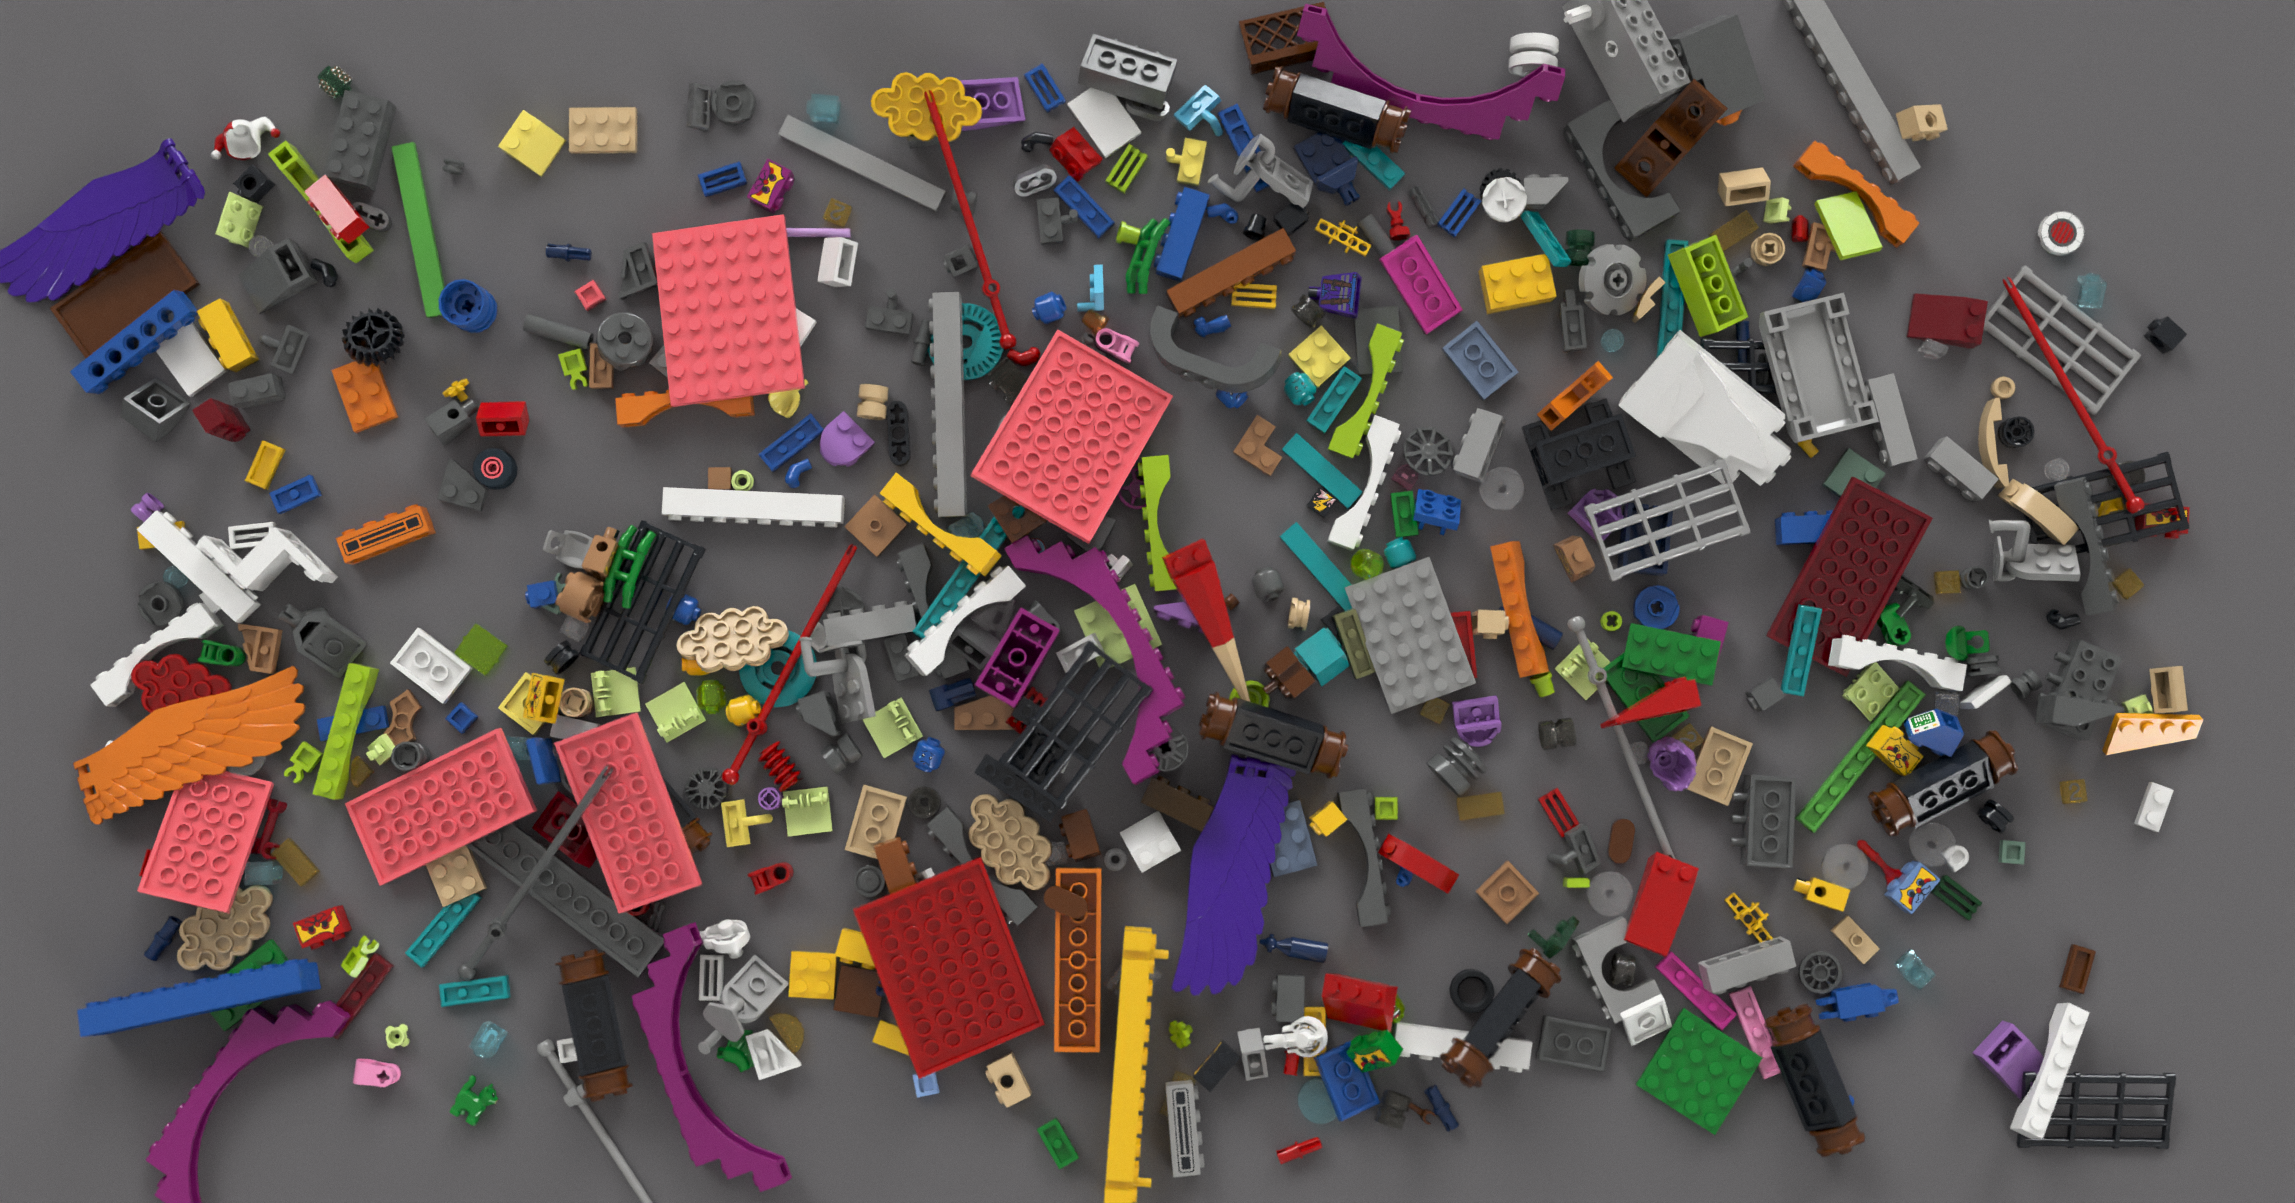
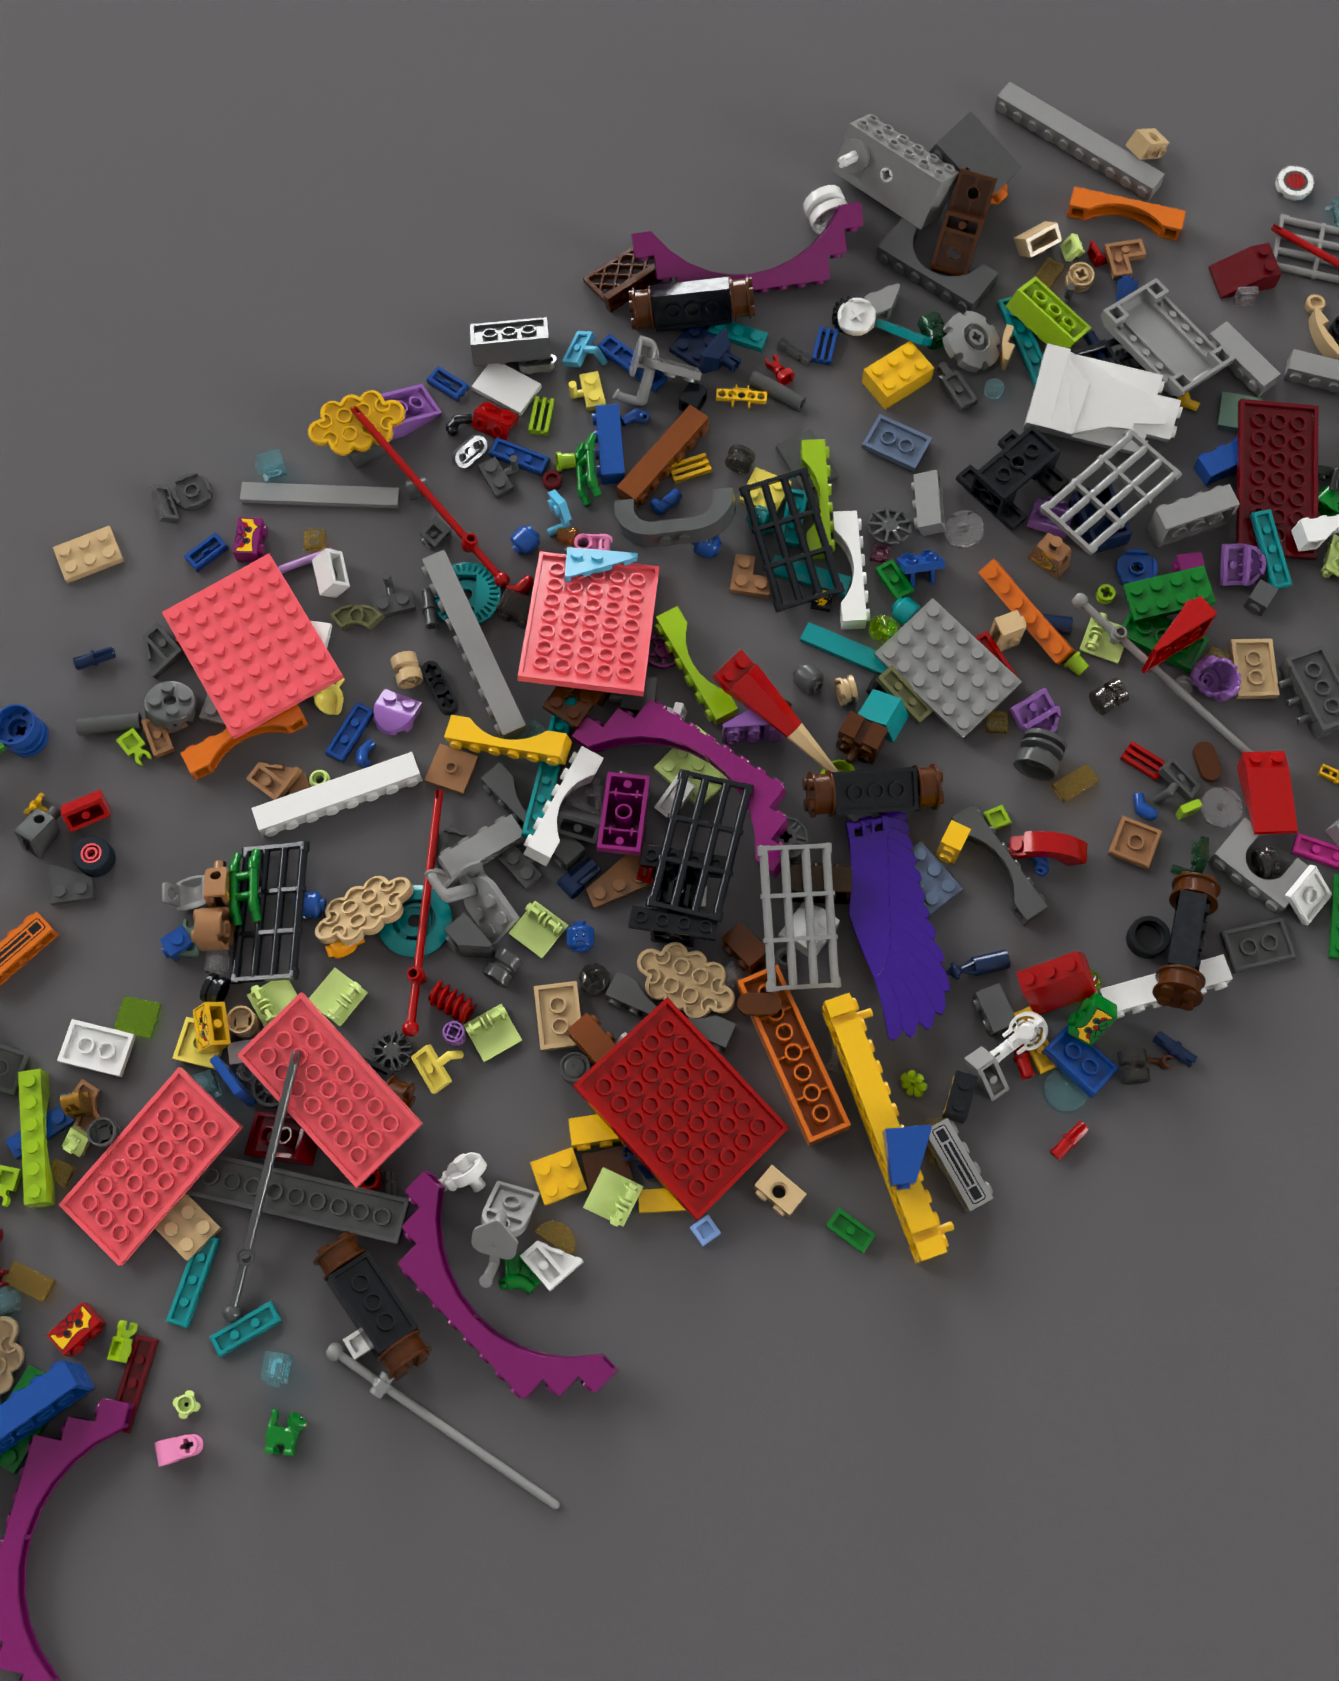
camera: 20 degrees left, 15 degrees down
(392, 717) = (76, 1104): none -> pearl gold leg
(461, 717) = (141, 1083): blue tile -> none
(532, 143) = (29, 585): light yellow slope -> none
(590, 295) = (126, 685): coral tile -> none
(697, 463) = (273, 779): none -> medium nougat wing
(703, 957) = (464, 1241): white tile -> none
(711, 696) = (364, 968): clear neon green head -> none
(742, 710) = (396, 967): yellow head -> none
(767, 878) = (481, 1104): red piece -> none
(848, 319) = (356, 615): none -> olive tile
(853, 1019) = (613, 1197): none -> yellowish green hinge
(1099, 363) = (590, 561): none -> medium azure wing
(1106, 249) = (552, 480): none -> dark red tile
(1132, 1108) = (905, 1153): none -> blue slope
(1136, 813) = (766, 896): none -> light grey door
(1255, 227) = (666, 416): black piece -> none
(1292, 358) = (806, 553): none -> black door
(1338, 294) = (759, 436): torso -> none
(1420, 284) = (821, 404): dark pink tile -> none
(1532, 861) = (1142, 809): none -> blue arm
(1574, 395) = (987, 434): orange arch -> none
(1741, 579) = (1192, 515): none -> light grey brick
(1762, 652) = (1241, 564): none -> medium lavender slope
(1848, 225) = (1132, 235): tile -> none

